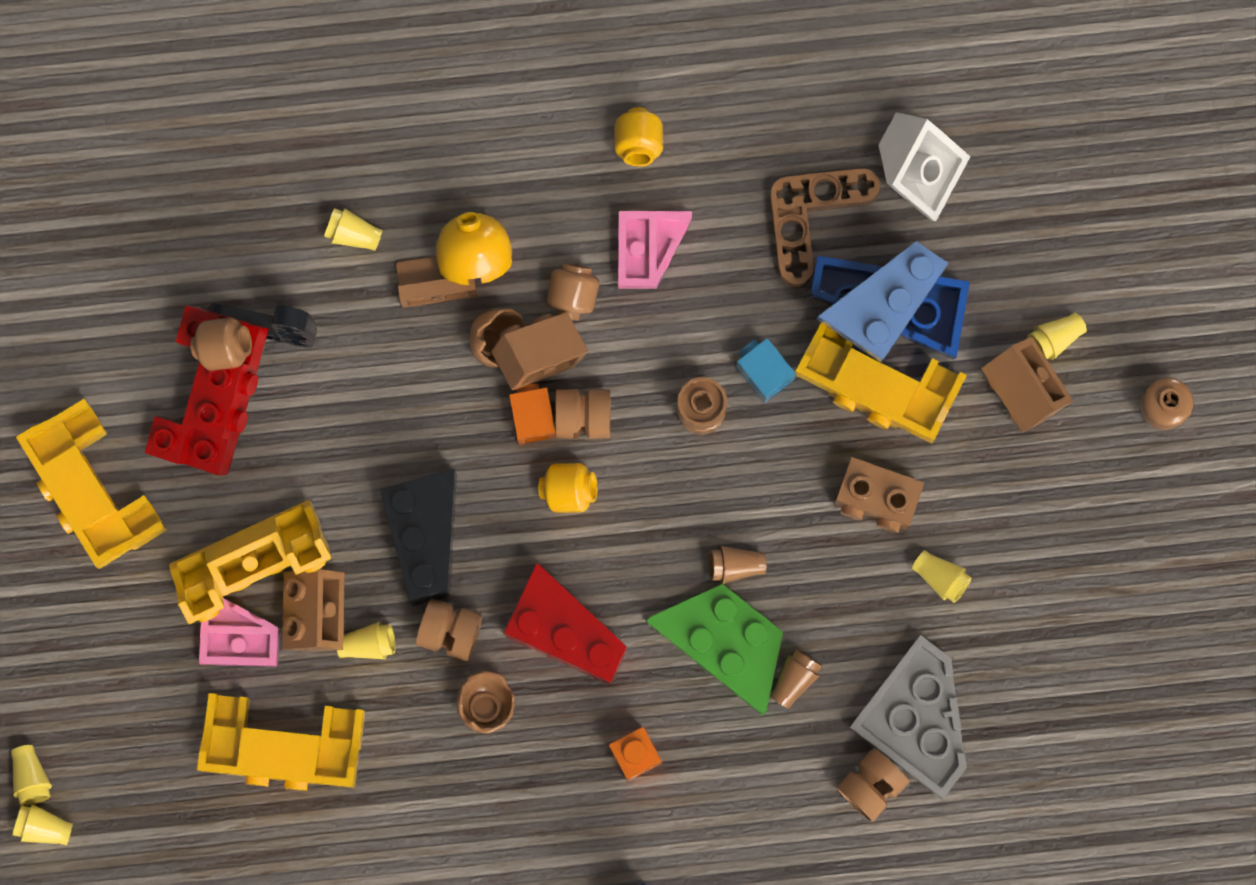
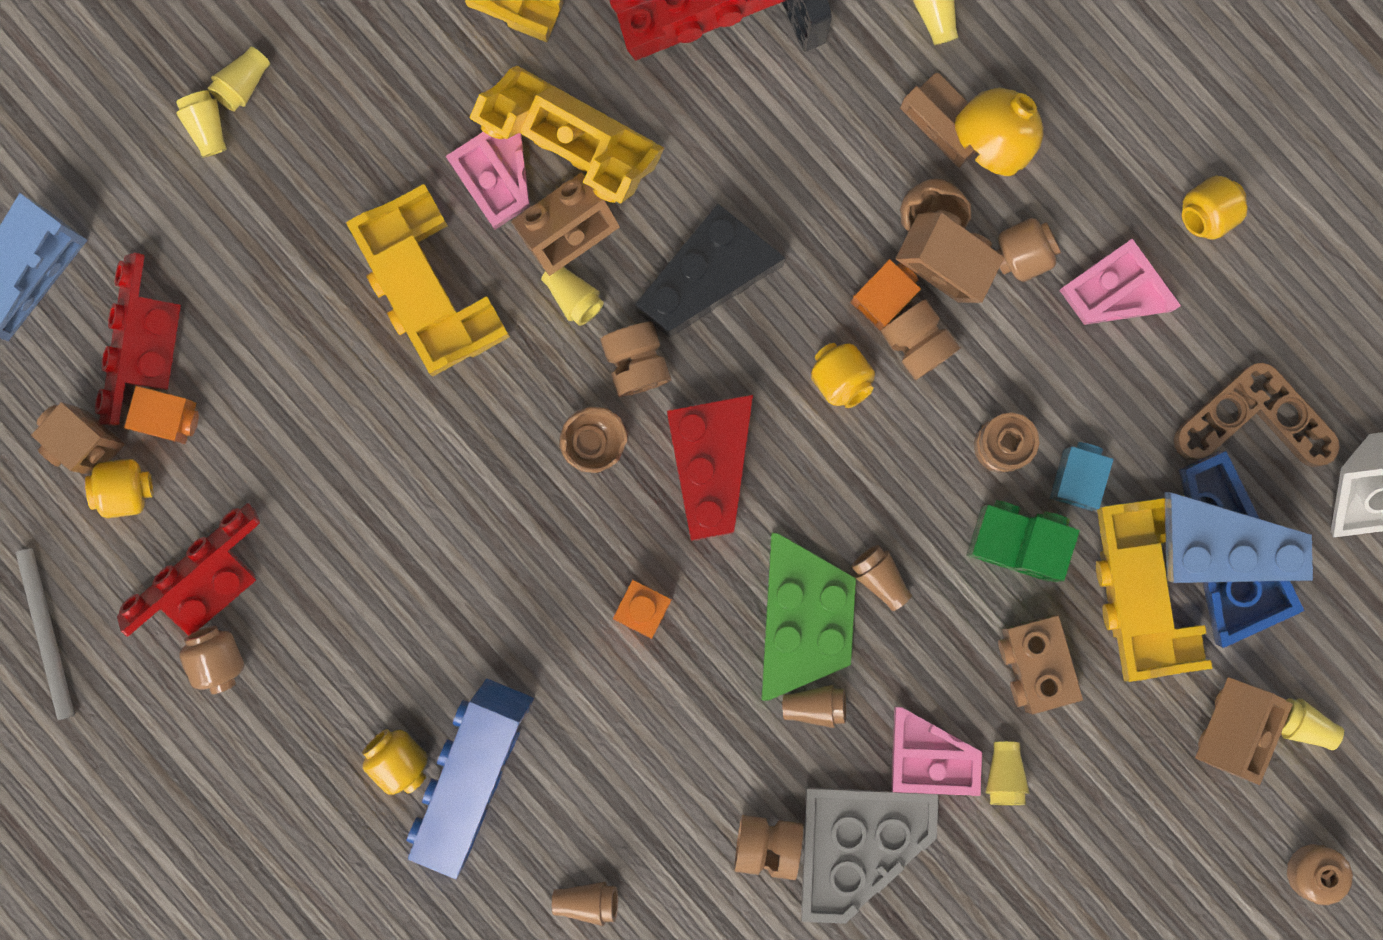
camera: 50 degrees right, 5 degrees up
(783, 446) = (1022, 544): none -> green brick
(892, 621) = (932, 759): none -> bright pink wing

